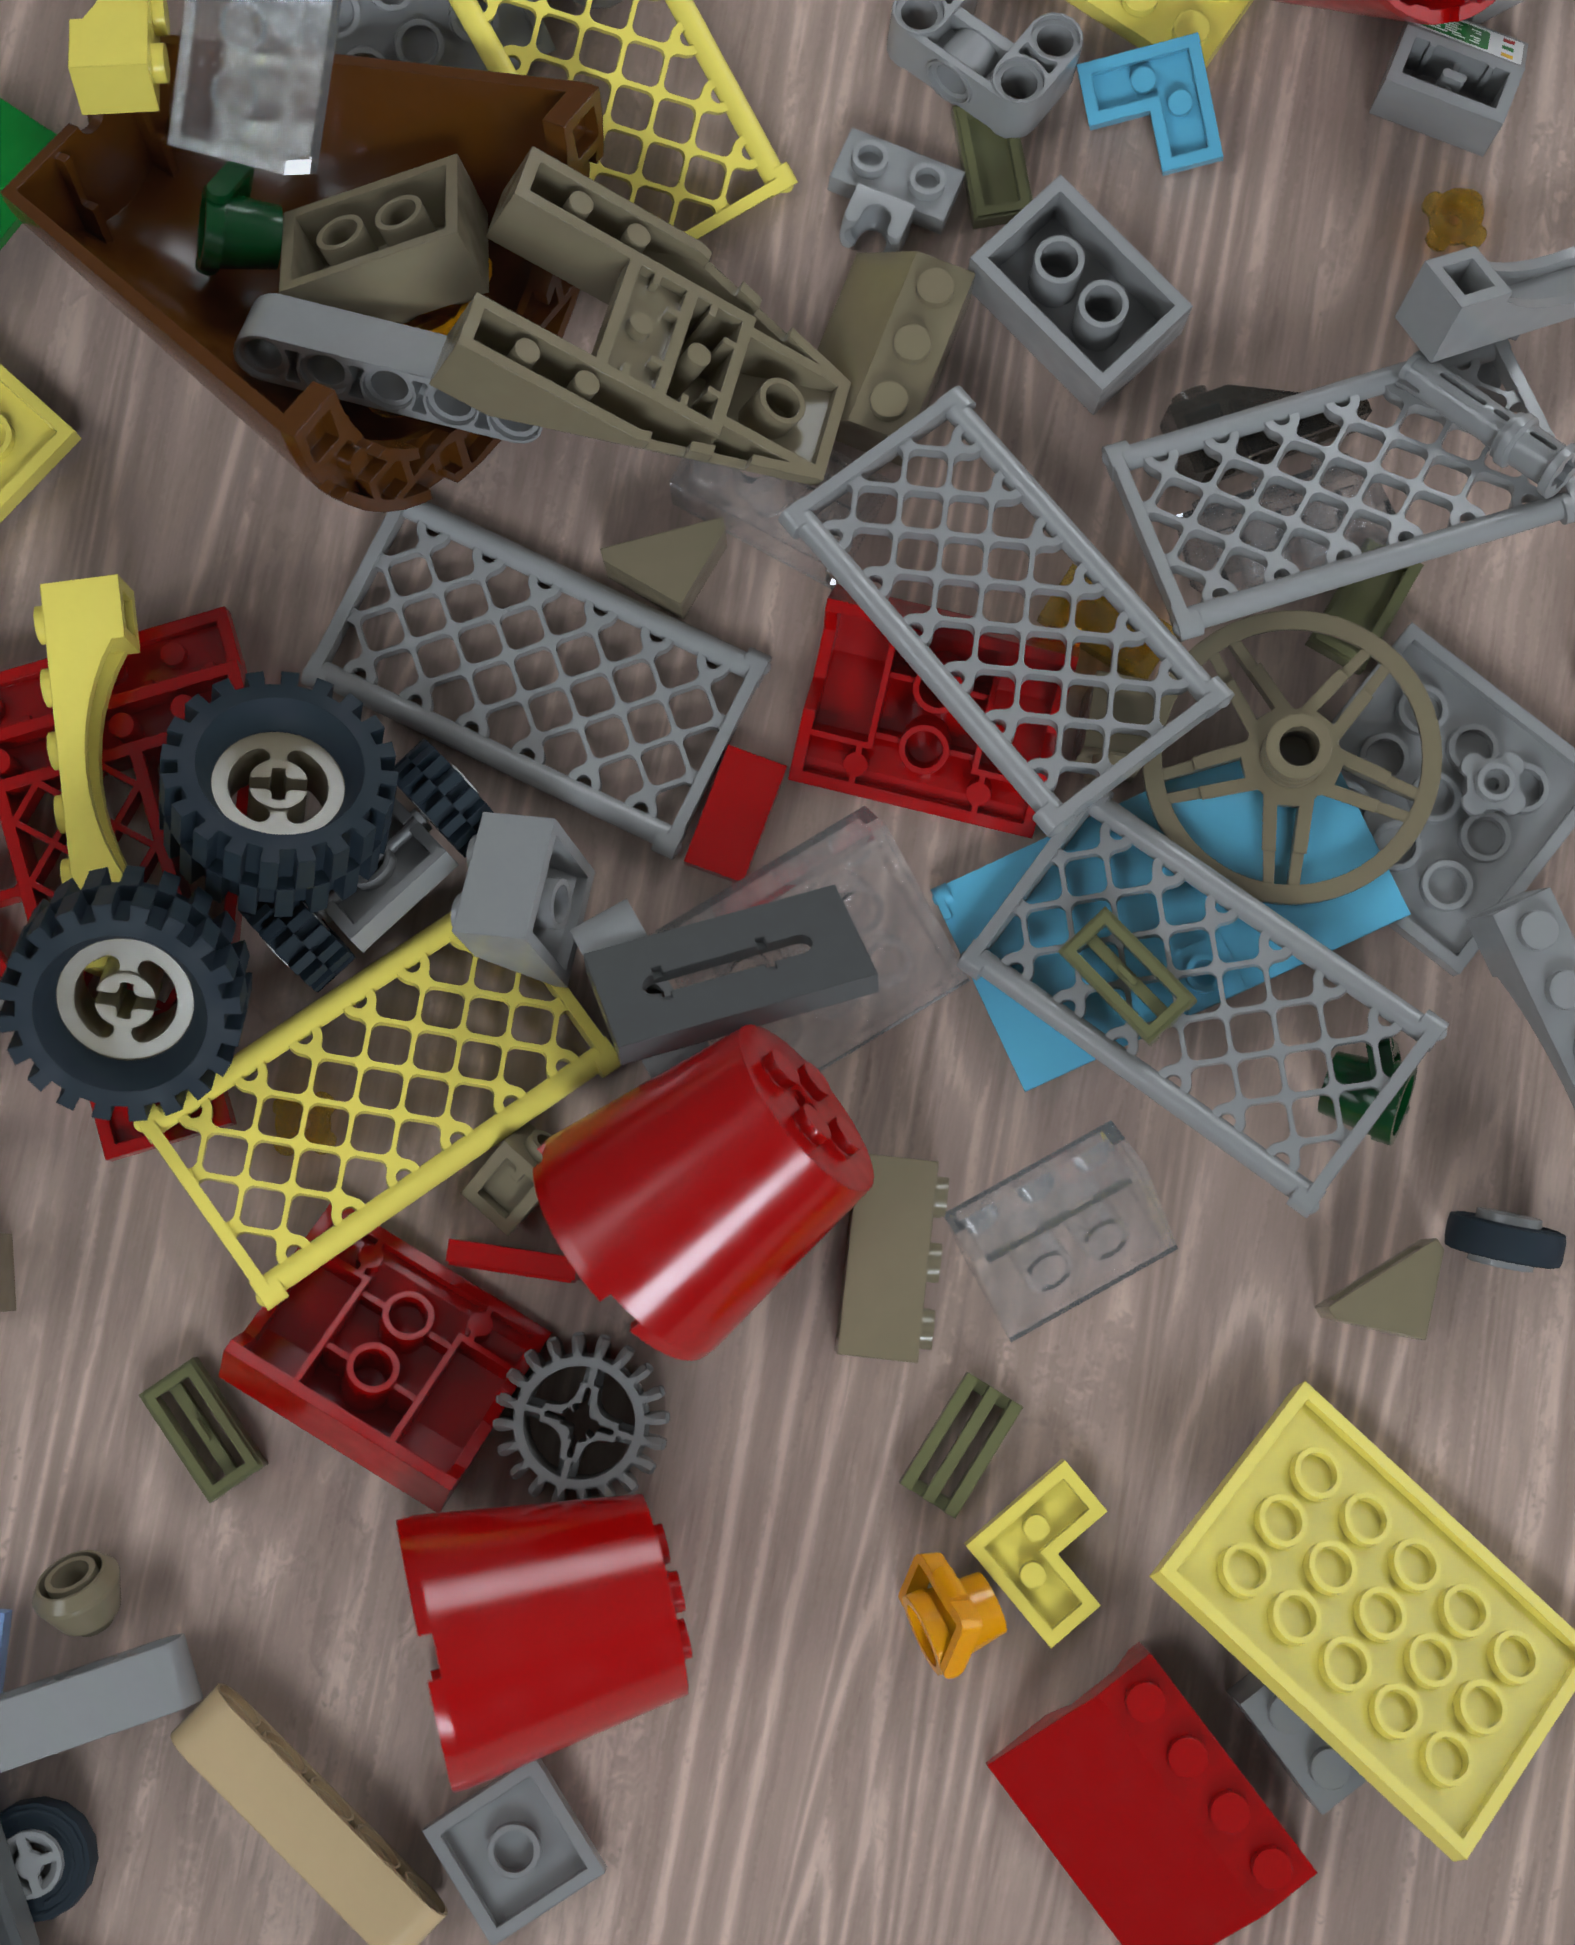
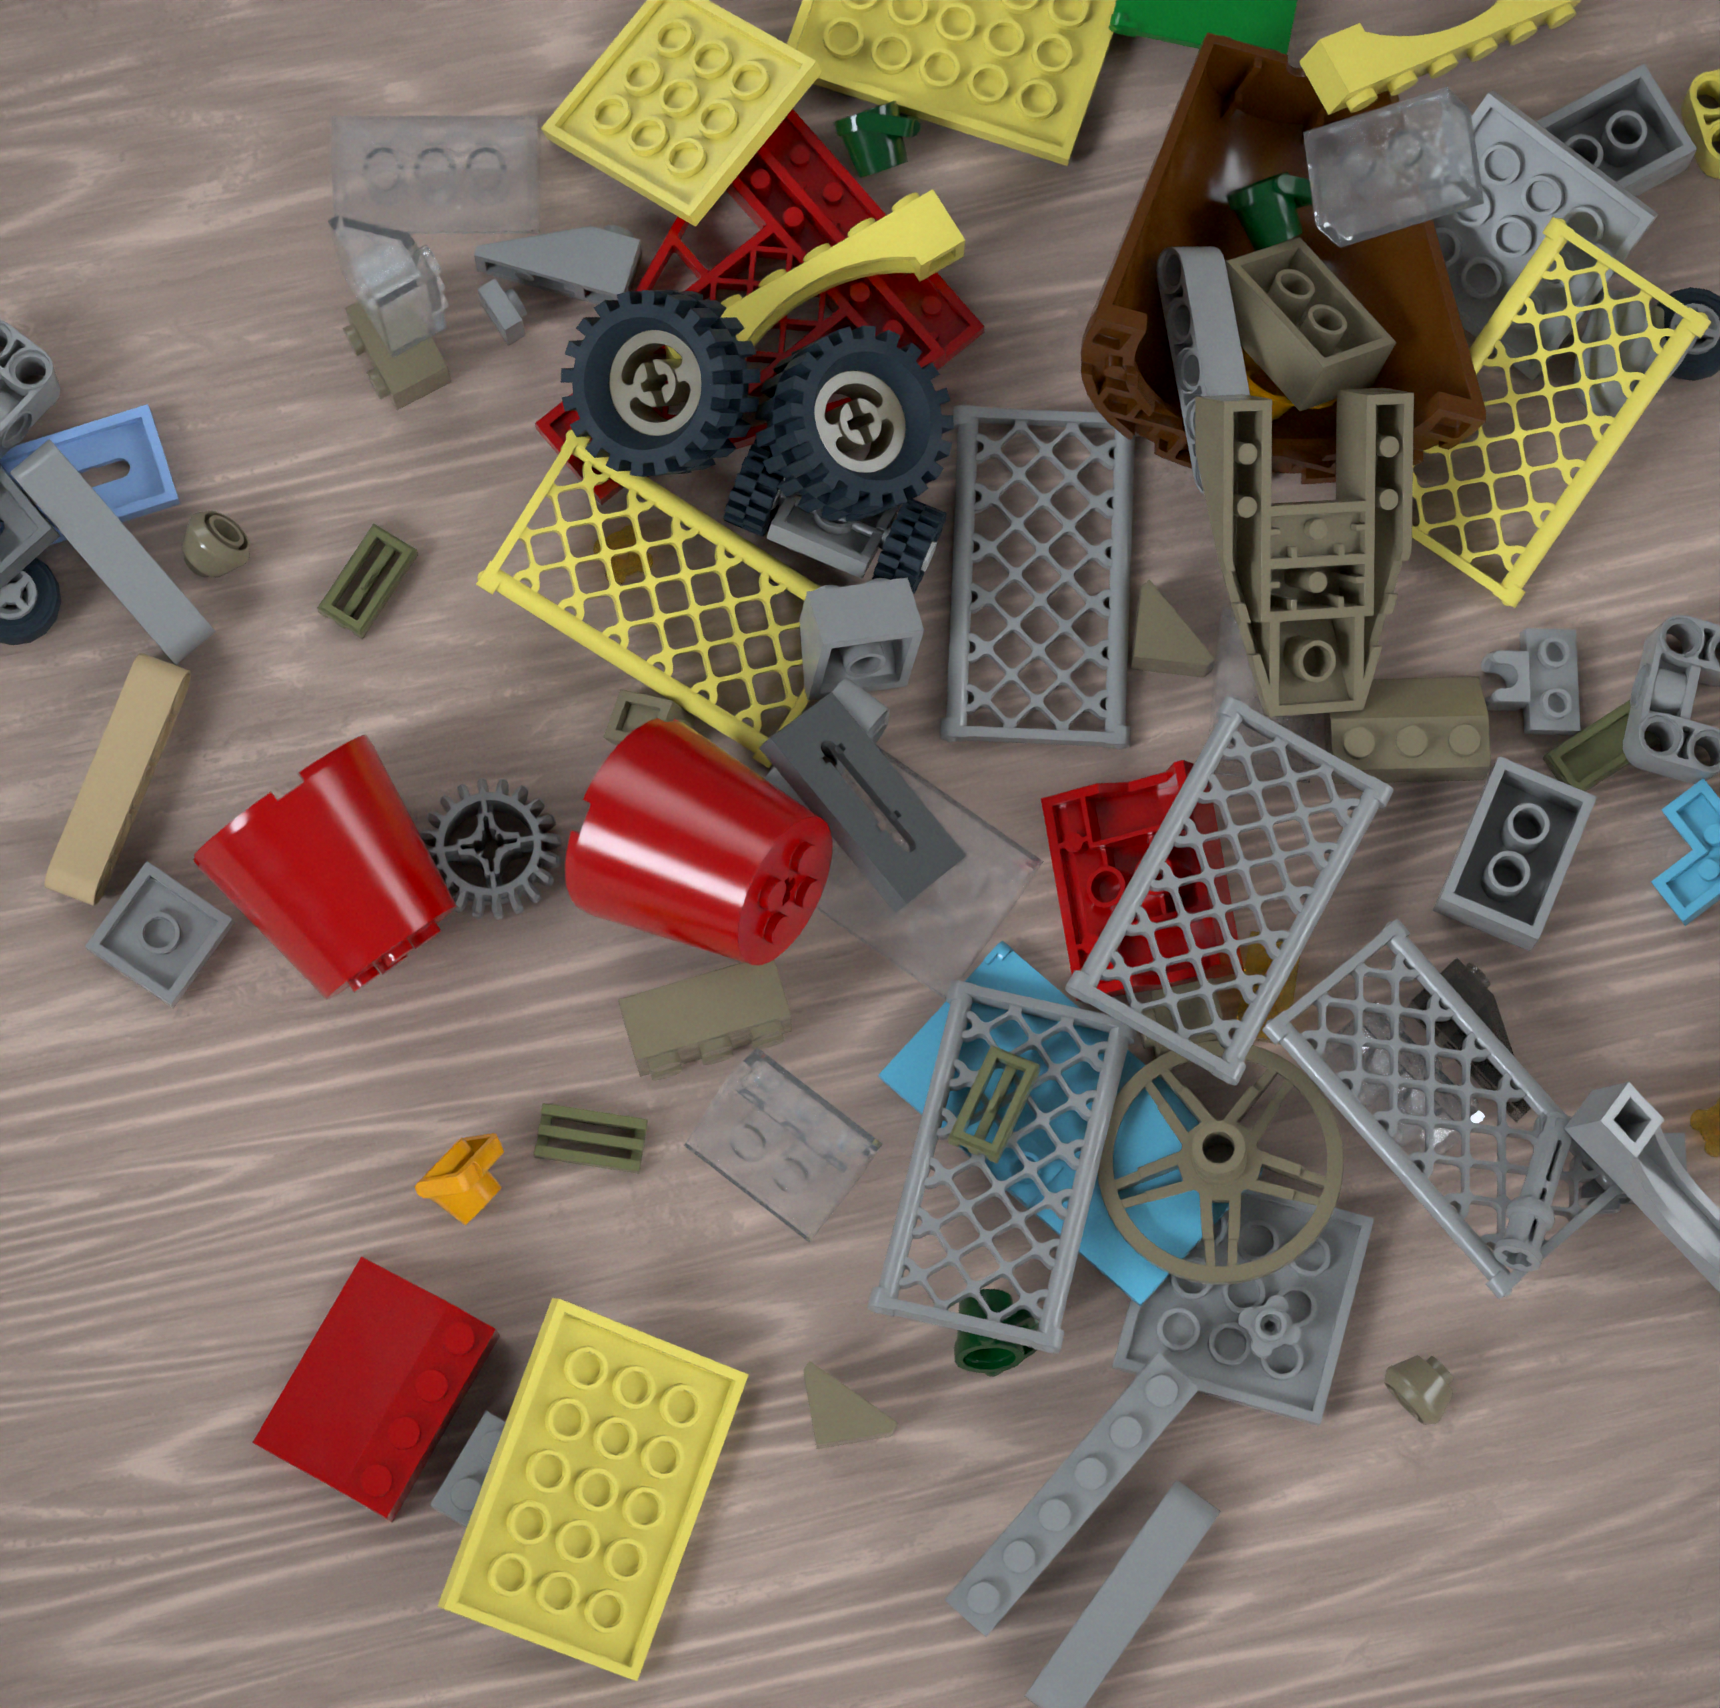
camera: 65 degrees right, 5 degrees down
(387, 1361) = (474, 689): red piece -> none
(510, 1260) = (583, 736): red tile -> none
(735, 814) = (995, 770): red tile -> none
(1024, 1547) = (533, 1215): light yellow plate -> none
(1368, 604) = (1373, 1185): olive tile -> none
(1505, 1239) = (920, 1477): black wheel -> none

